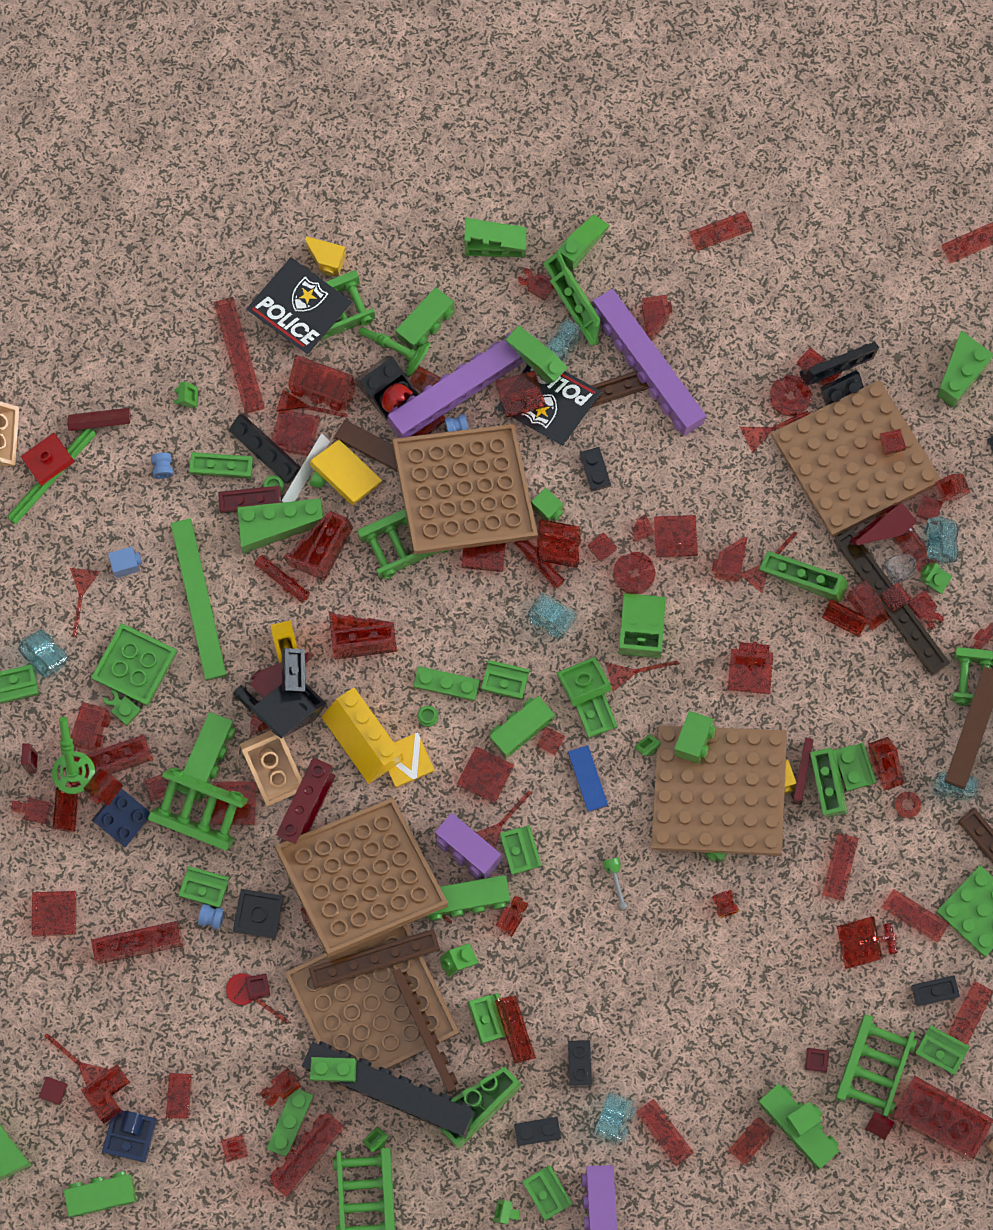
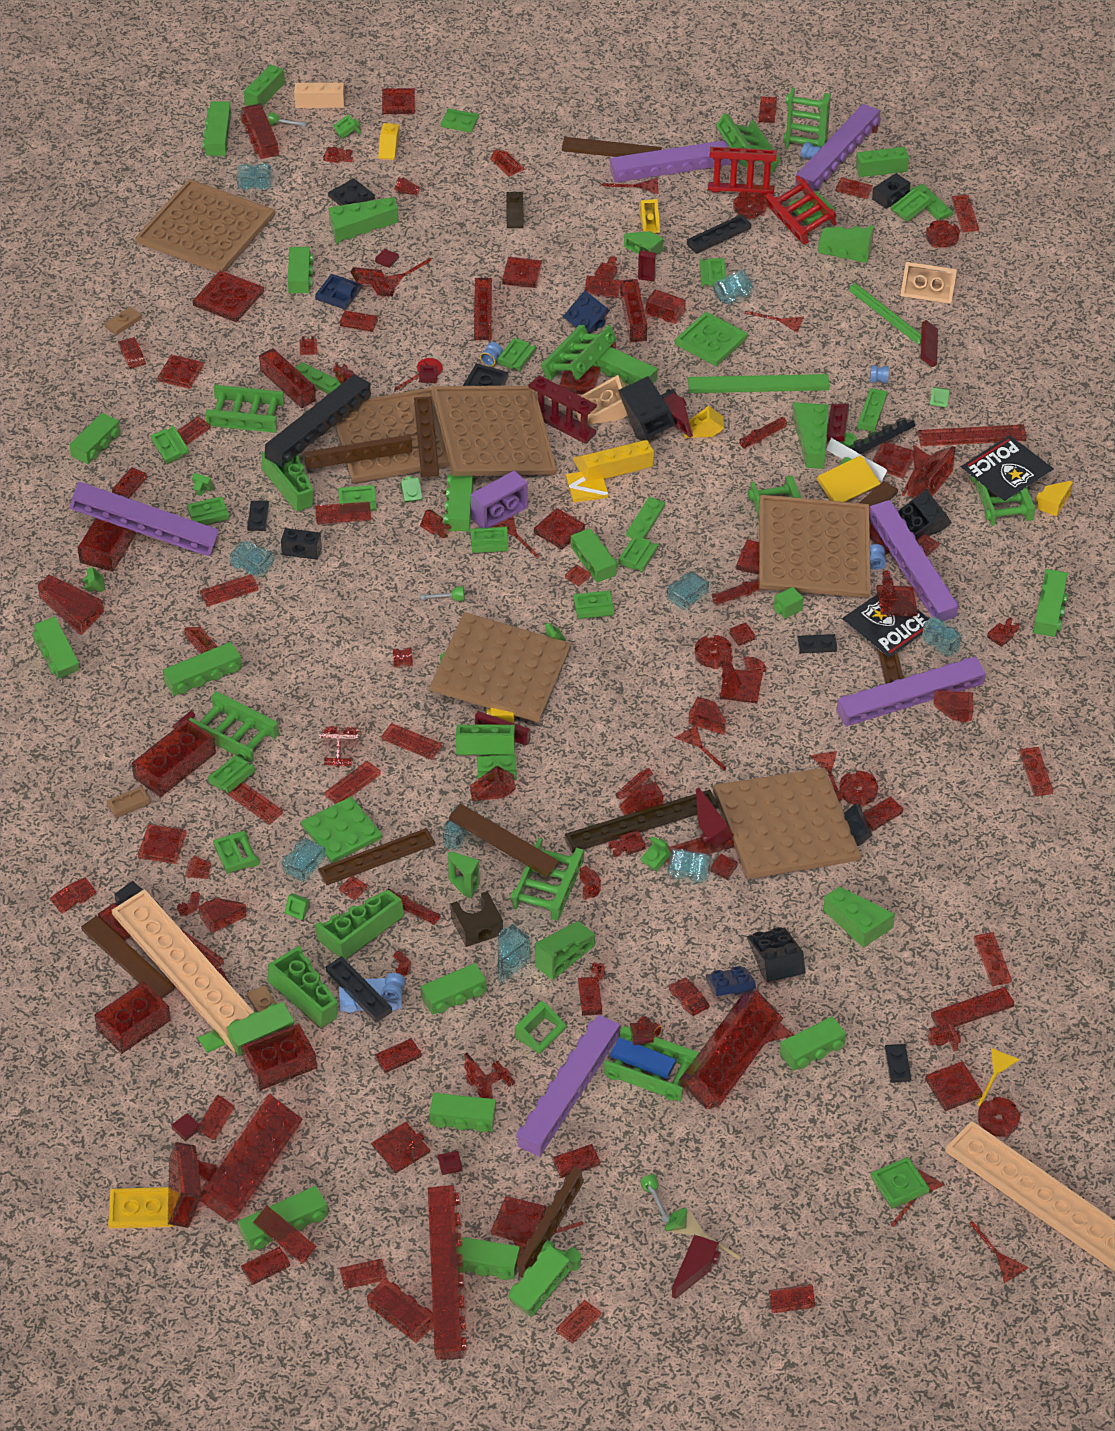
camera: 100 degrees right, 25 degrees down
(47, 459) = (899, 309): red plate -> none
(67, 761) = (628, 278): bright green dish -> none
(103, 787) = (609, 296): clear red brick -> none
(123, 709) = (674, 330): bright green plate -> none
(125, 562) = (799, 342): medium blue brick -> none
(293, 670) = (674, 407): plate -> none
(321, 546) = (783, 455): clear red wedge -> none
(333, 1069) = (343, 386): bright green plate -> none
(360, 636) = (699, 465): clear red wedge -> none
(375, 1140) = (283, 421): bright green slope -> none
(395, 396) = (906, 506): red hair -> none
(413, 356) = (946, 530): bright green dish -> none
(425, 319) = (981, 551): bright green brick -> none
(427, 716) = (620, 502): bright green plate -> none
(536, 355) = (927, 606): bright green slope -> none
(558, 543) = (751, 603): clear red slope -> none
(573, 297) = (987, 647): bright green wedge -> none
(582, 241) = (1039, 666): bright green slope -> none
(584, 681) = (622, 599): bright green plate -> none
(587, 778) = (538, 592): blue tile -> none
(619, 674) = (624, 631): clear red piece -> none
(642, 625) = (662, 644): bright green slope -> none
(694, 737) = (549, 650): bright green piece -> none
(751, 668) = (604, 712): clear red plate -> none
(804, 1118) = (204, 659): bright green brick -> none
(805, 576) = (677, 764): bright green slope -> none
(816, 1060) = (252, 695): dark red tile -> none
(839, 364) = (879, 820): black hinge -> none
(892, 442) = (791, 839): clear red plate -> none
(895, 596) = (643, 818): clear red plate -> none
(900, 568) = (670, 829): clear hat -> none
(908, 813) = (451, 803): clear red piece -> none
(935, 991) = (282, 781): black plate -> none
(953, 487) = (739, 882): clear red brick -> none

